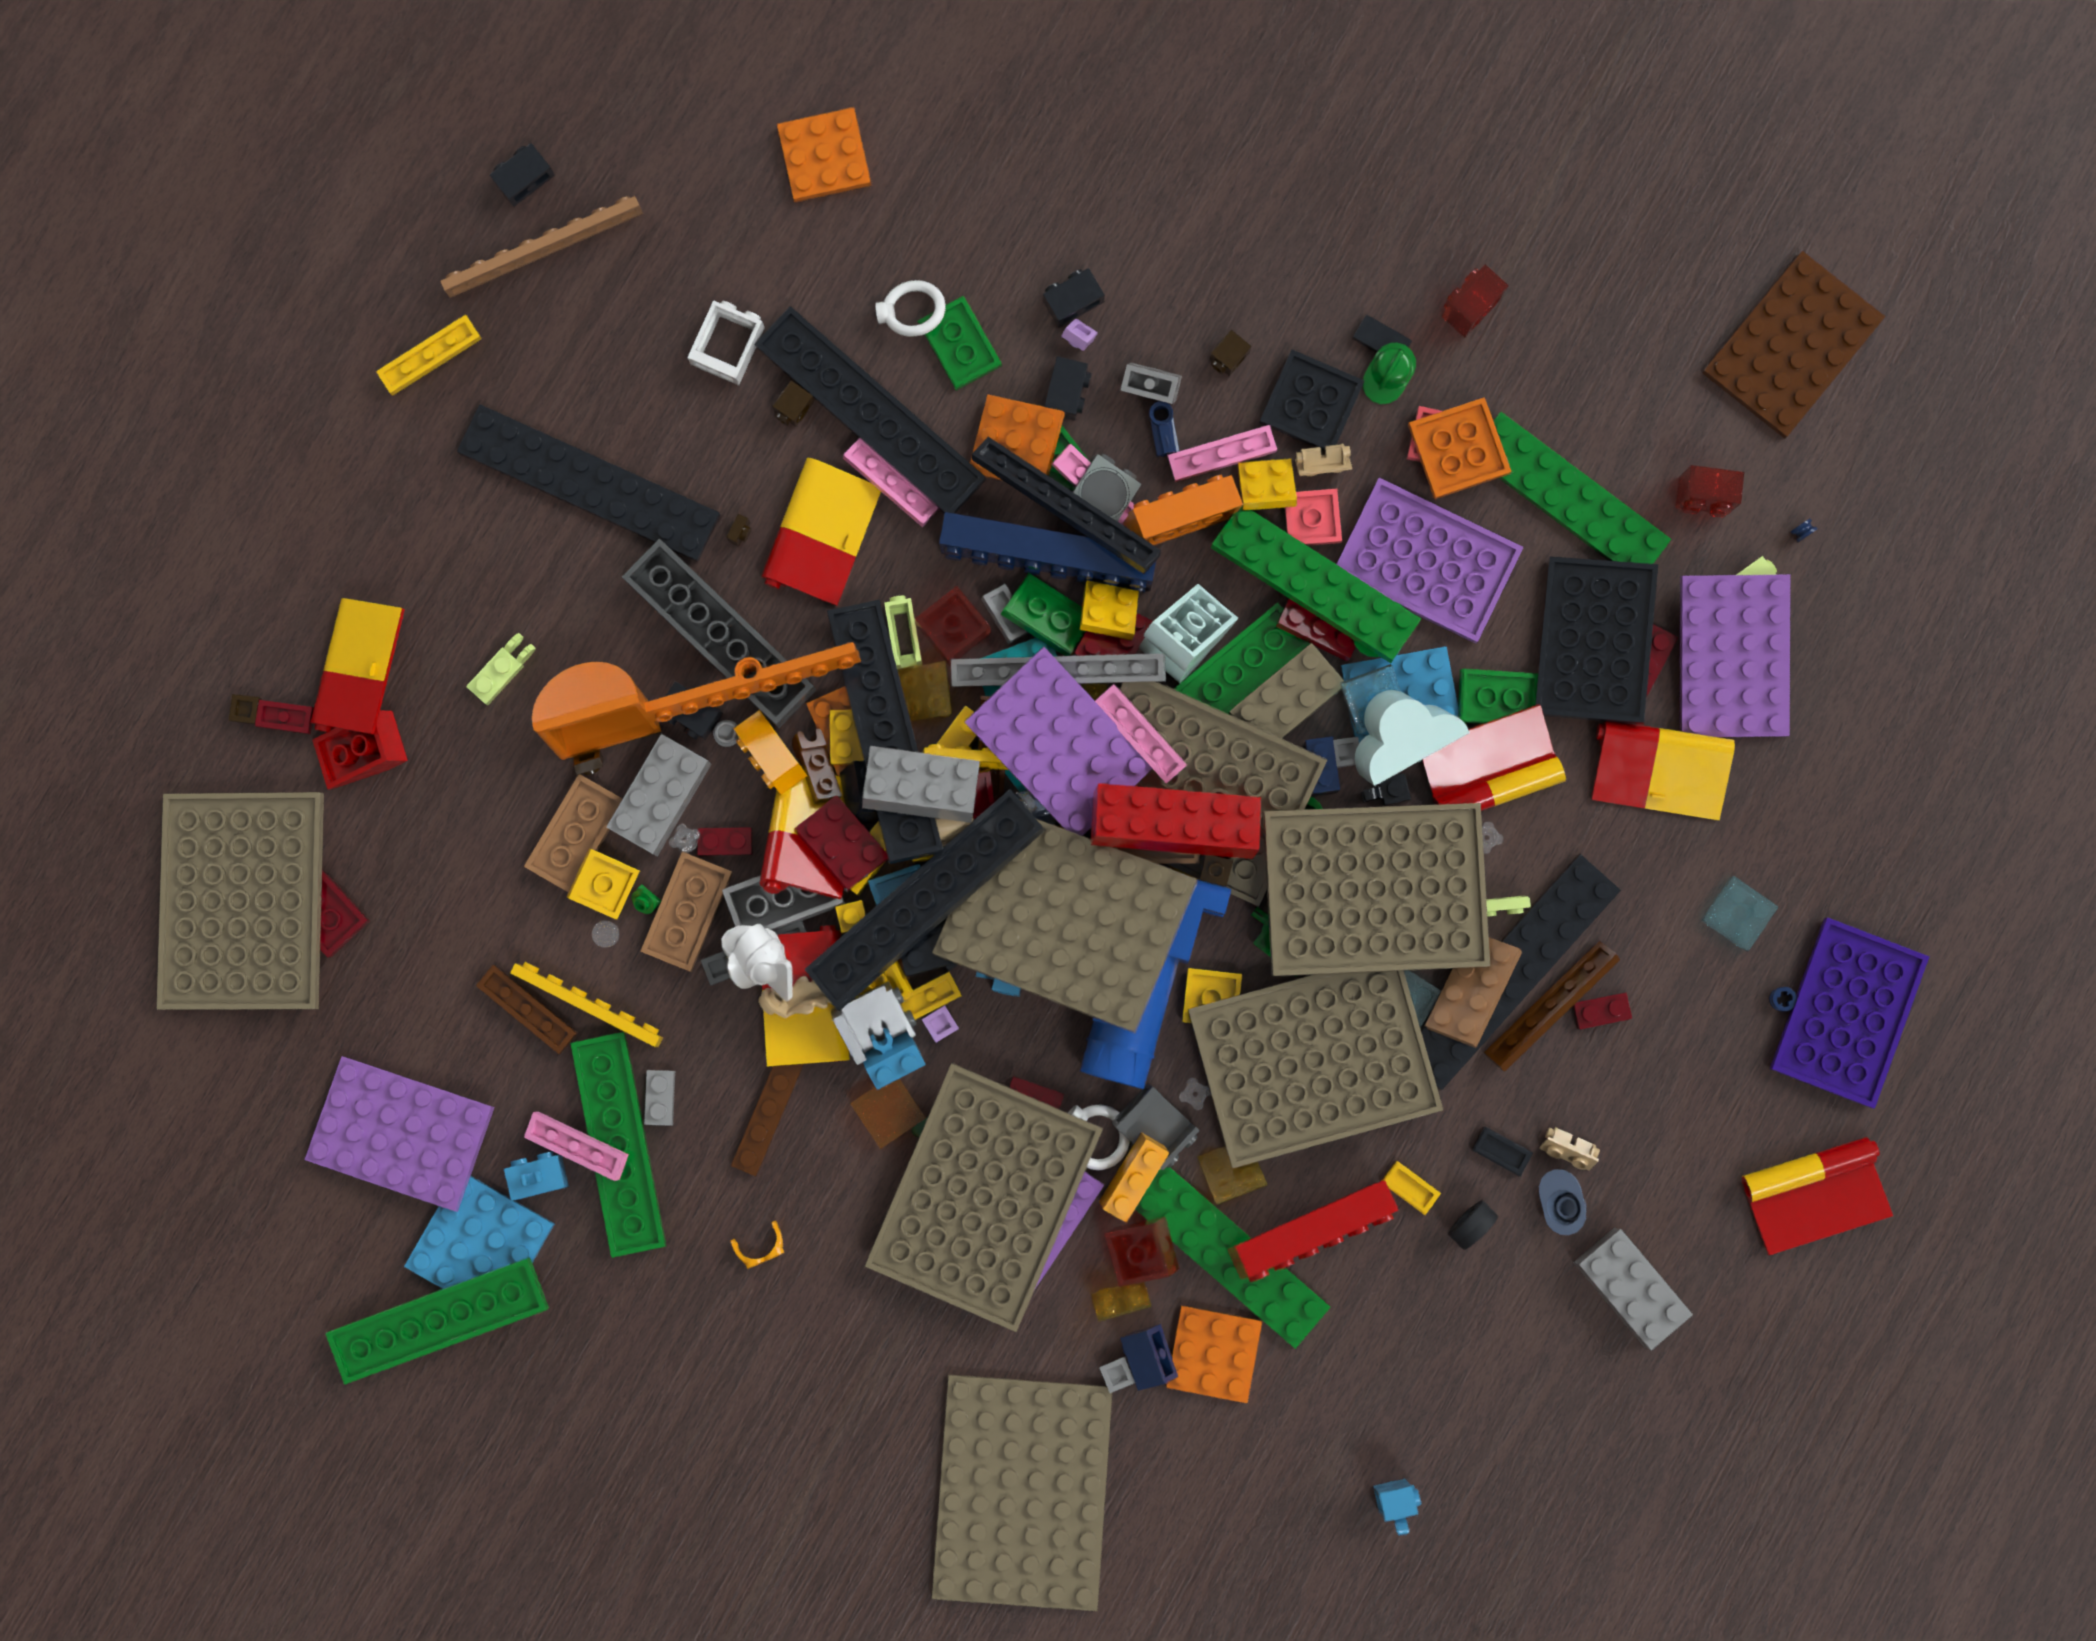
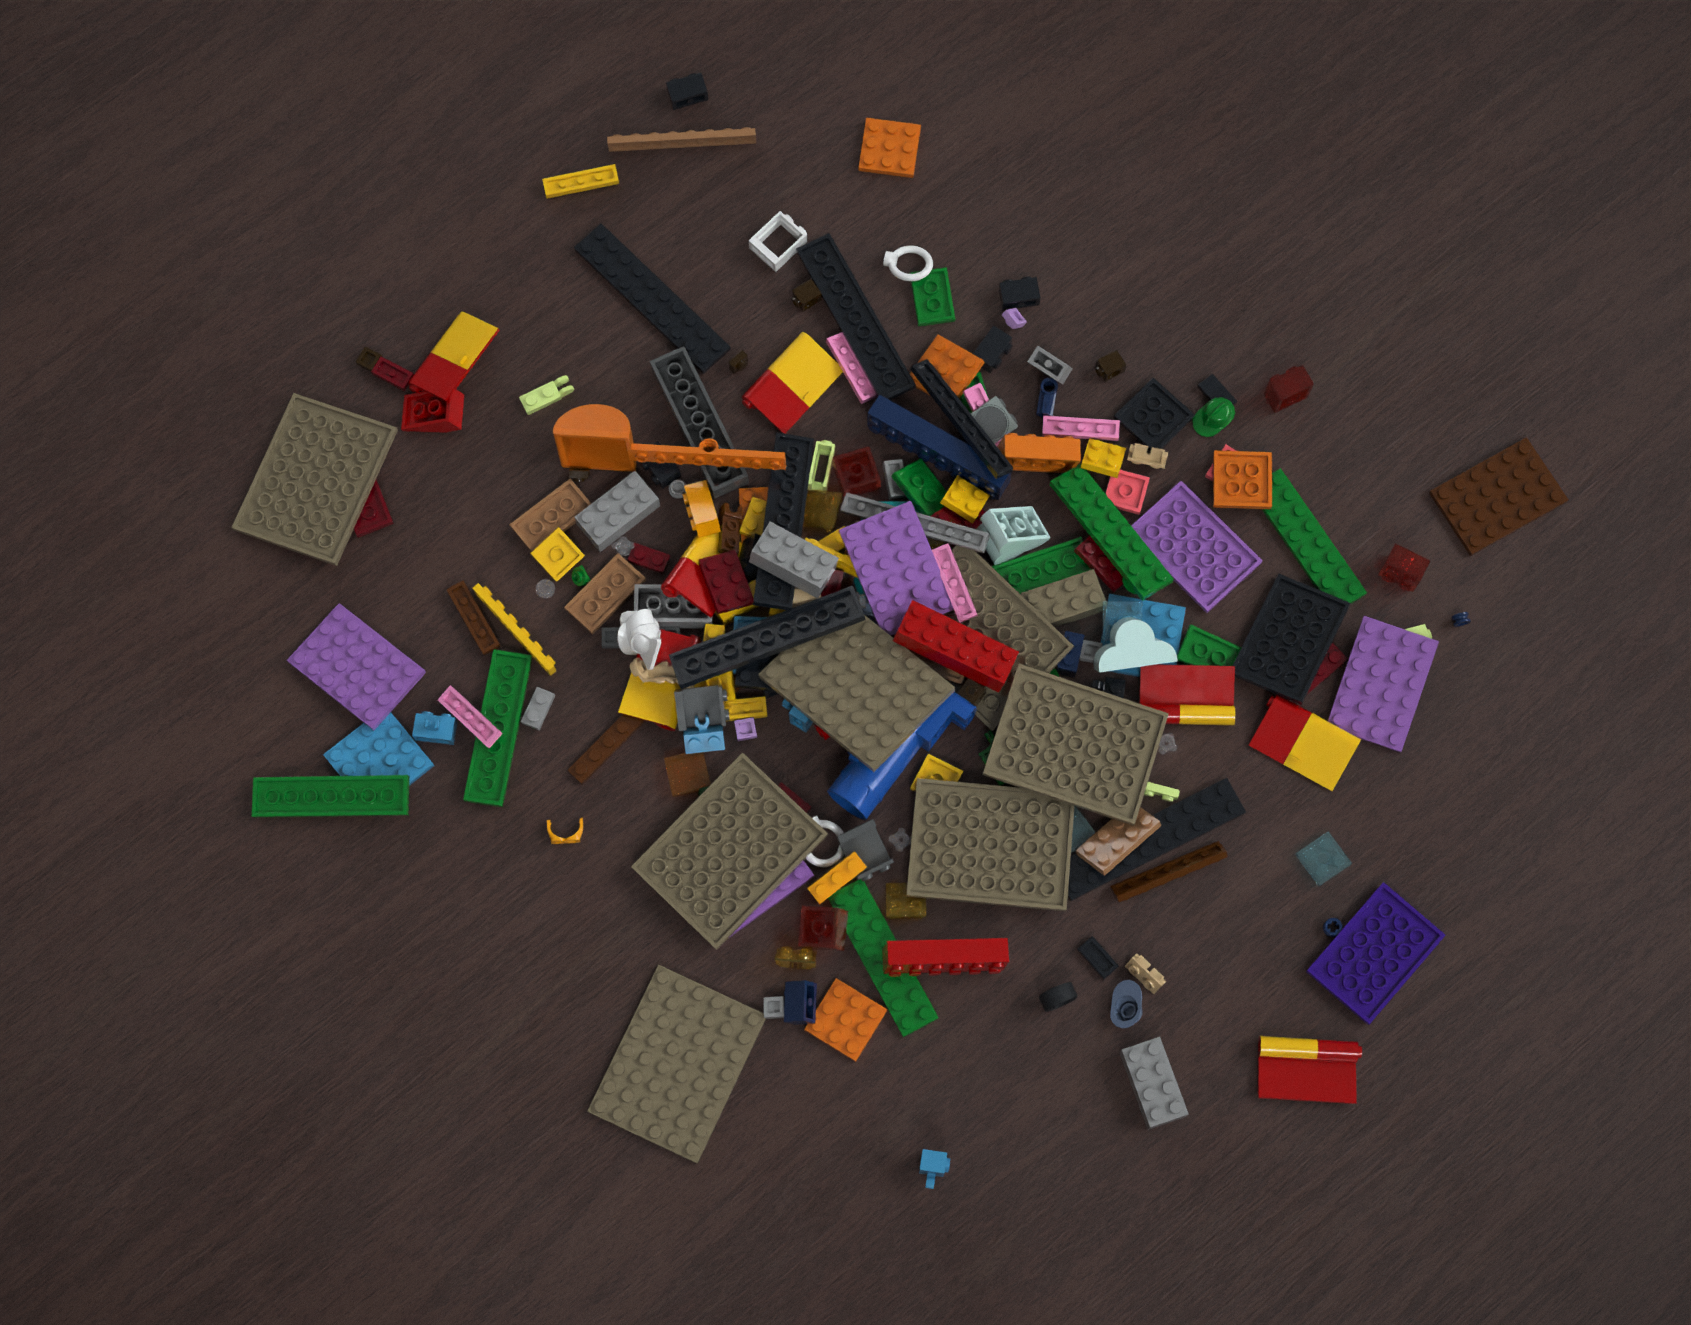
camera: 20 degrees right, 10 degrees down
(1411, 1187) = (1025, 958): yellow tile -> none
(1602, 1011) = (1203, 889): dark red plate -> none

